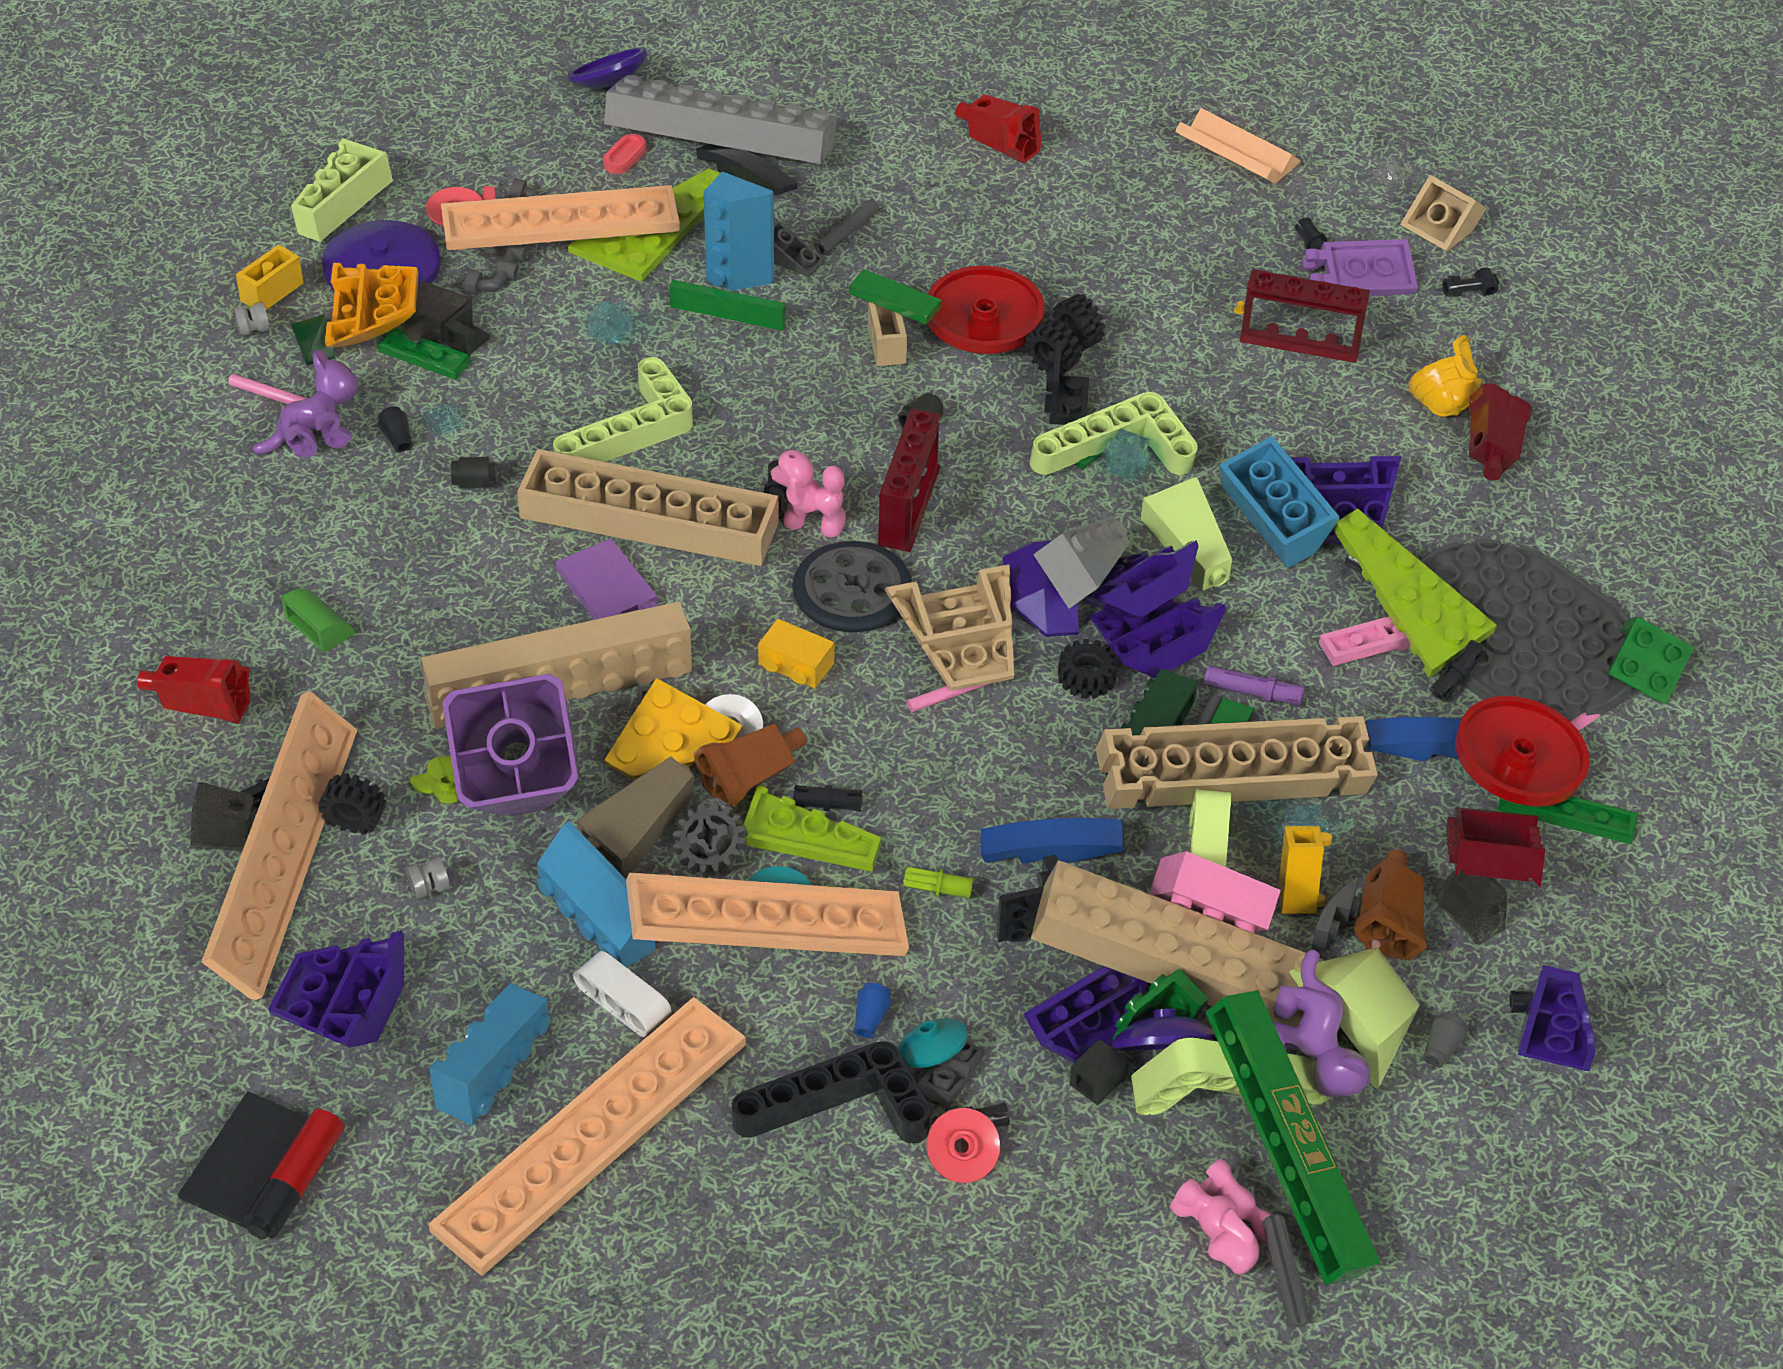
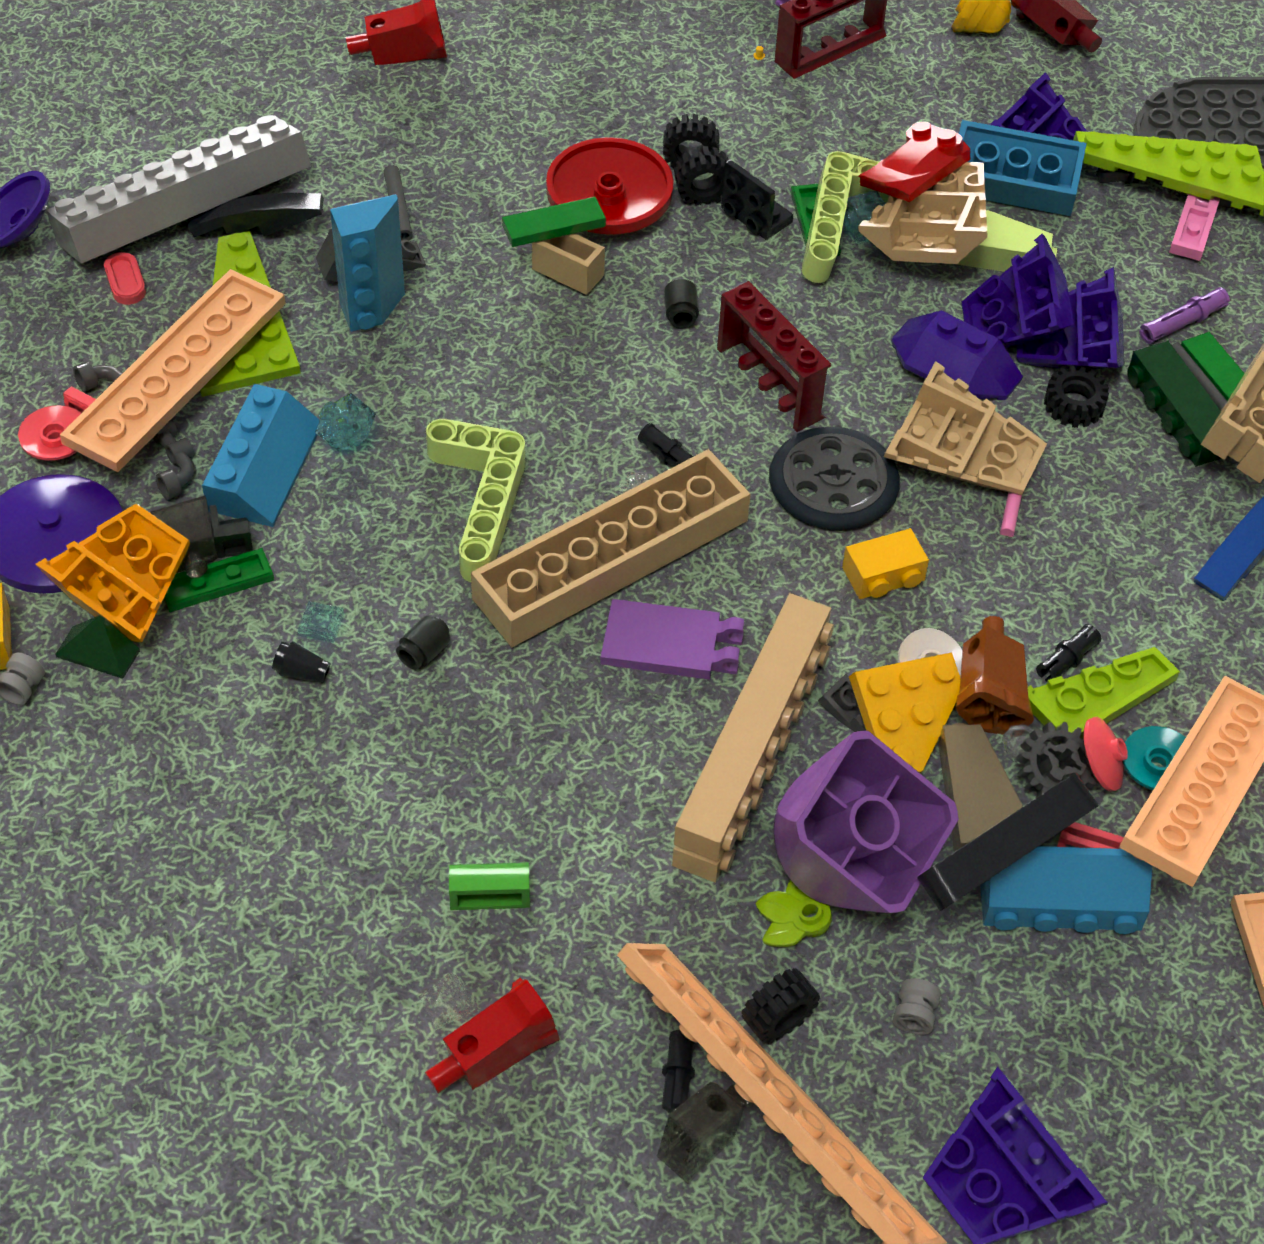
camera: 50 degrees left, 5 degrees up
(263, 389) = (131, 728): bright pink bar -> none
(334, 386) = (207, 670): medium lavender animal -> none
(491, 1050) = (1186, 1094): dark azure wedge -> none
(538, 304) = (261, 456): none -> dark azure slope
(584, 822) = (1007, 841): none -> black beam
(623, 993) = (1183, 944): white beam -> none
(727, 305) = (409, 335): green tile -> none
(732, 847) = (1105, 753): none -> coral dish
(807, 495) = (724, 426): bright pink animal -> none
(938, 882) = (1232, 642): lime axle -> none
(1083, 558) = (989, 309): light grey wedge -> none
(1155, 478) = (937, 224): none -> tan wedge
(1191, 439) = (919, 163): none -> red slope

